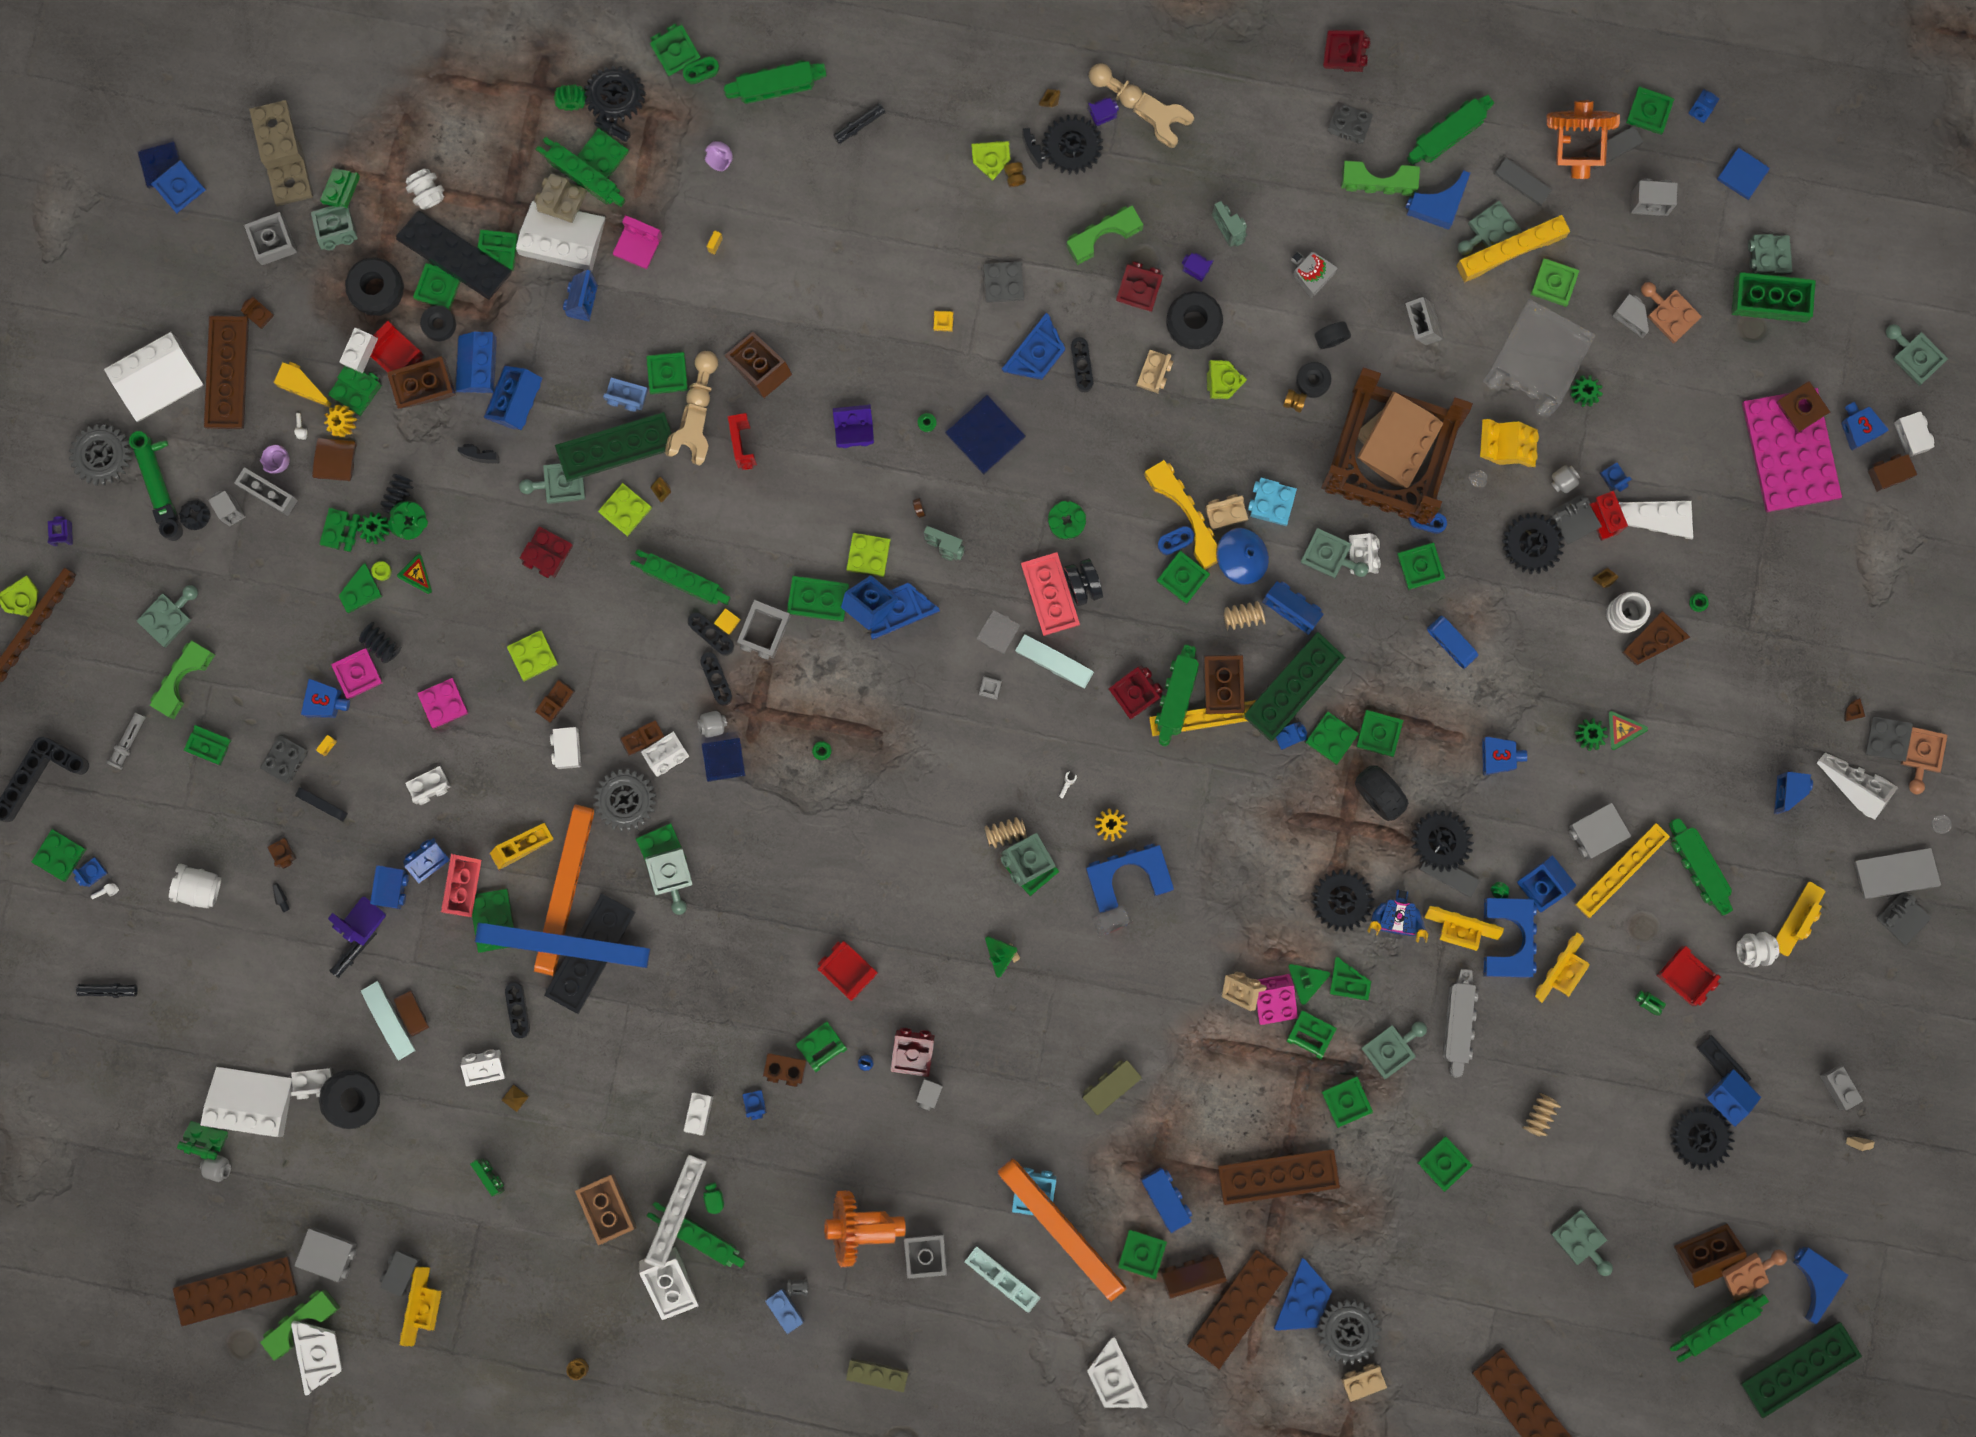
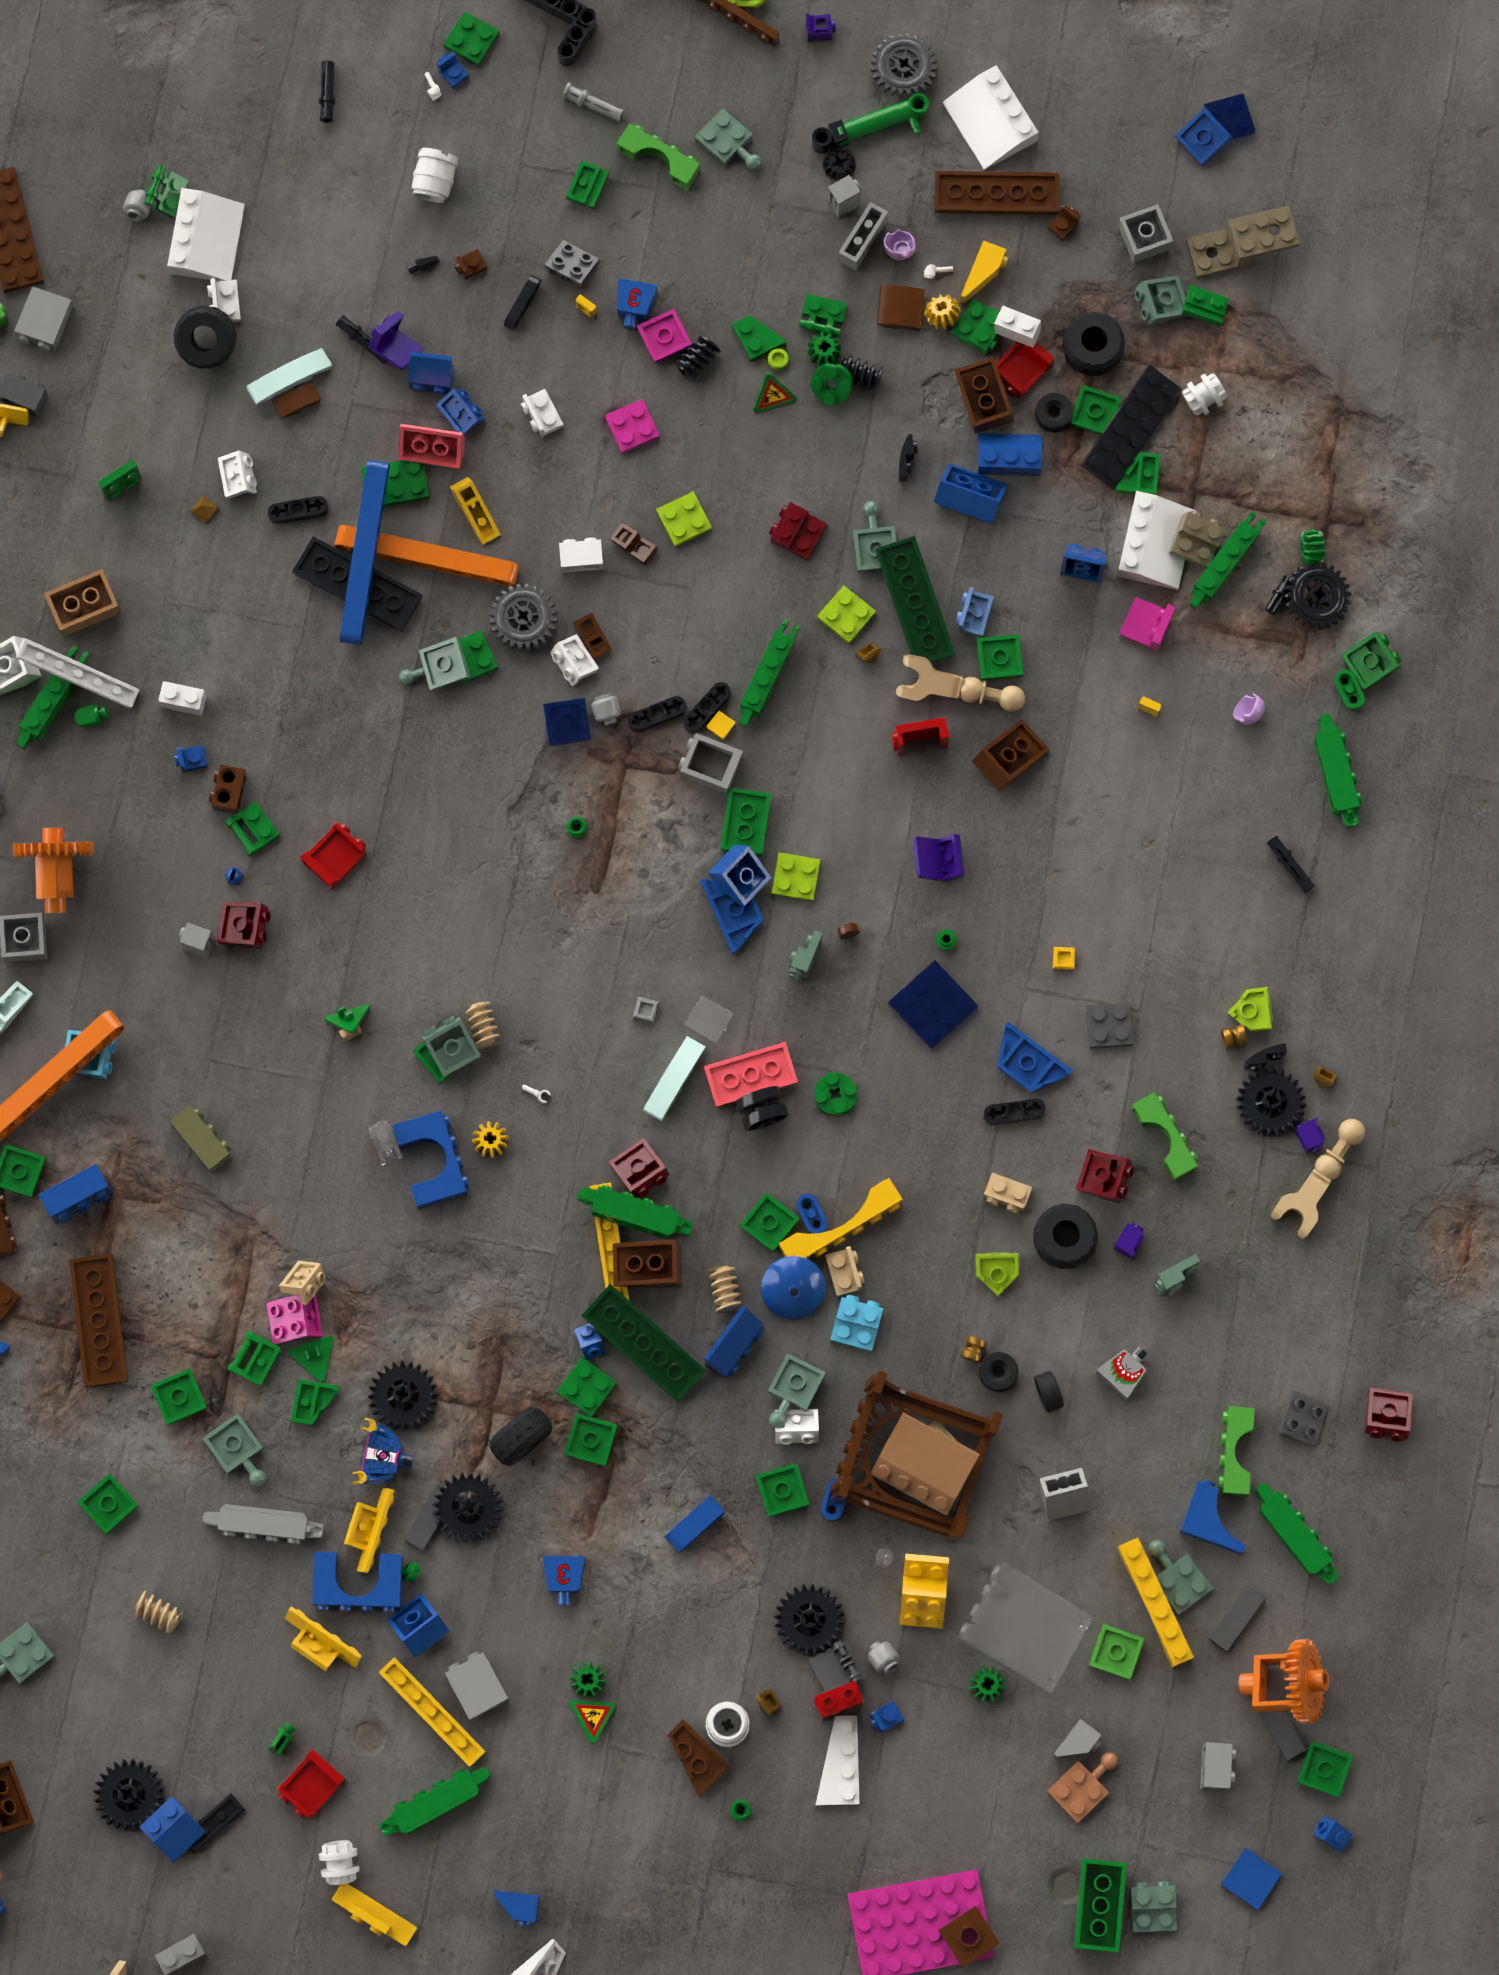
camera: 90 degrees right, 5 degrees down
(603, 153) = (1250, 585): green plate -> none

